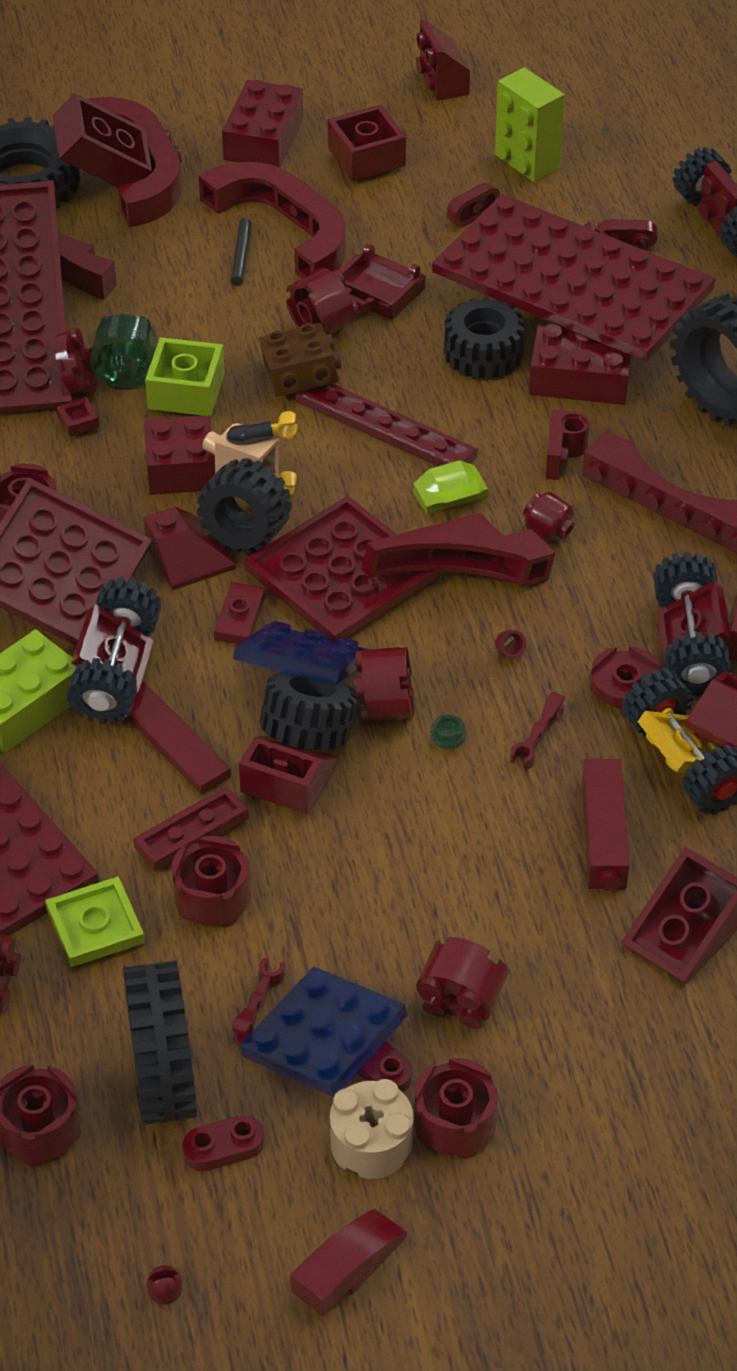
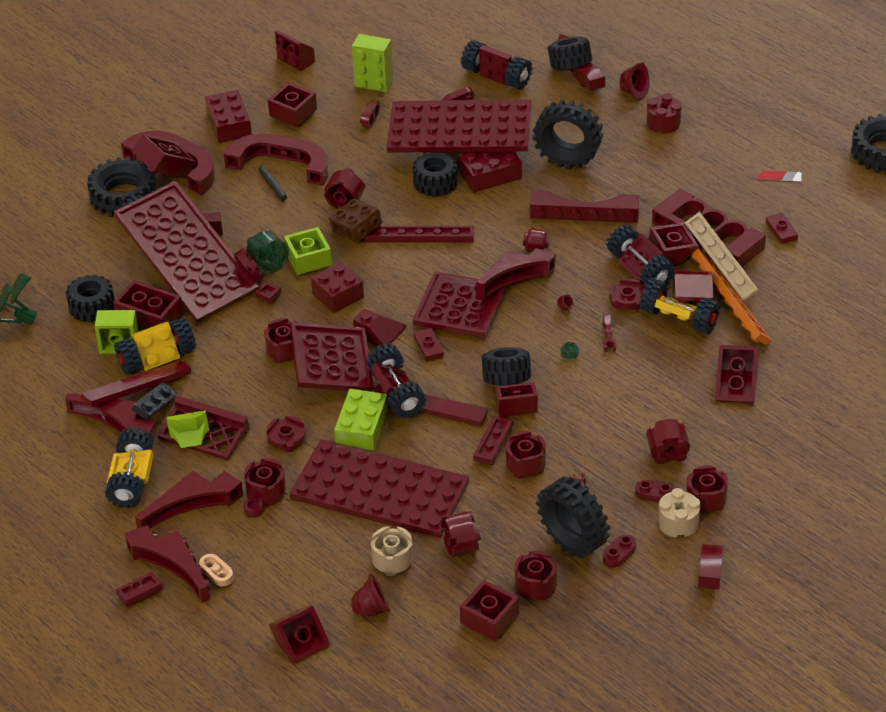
camera: 30 degrees left, 5 degrees down
(95, 921) = (485, 495): lime plate -> none
(164, 1284) = (646, 611): dark red hinge -> none
(229, 521) = (397, 280): black tyre -> none
(254, 443) = (383, 269): torso -> none
(299, 652) = (480, 344): clear blue plate -> none
(323, 1031) = (627, 487): clear blue plate -> none
(381, 283) = (364, 167): dark red piece -> none
(385, 684) = (529, 337): dark red brick -> none
(449, 486) = (475, 248): lime slope -> none
(566, 439) = (511, 204): dark red plate -> none
(605, 824) = (670, 355): dark red brick -> none

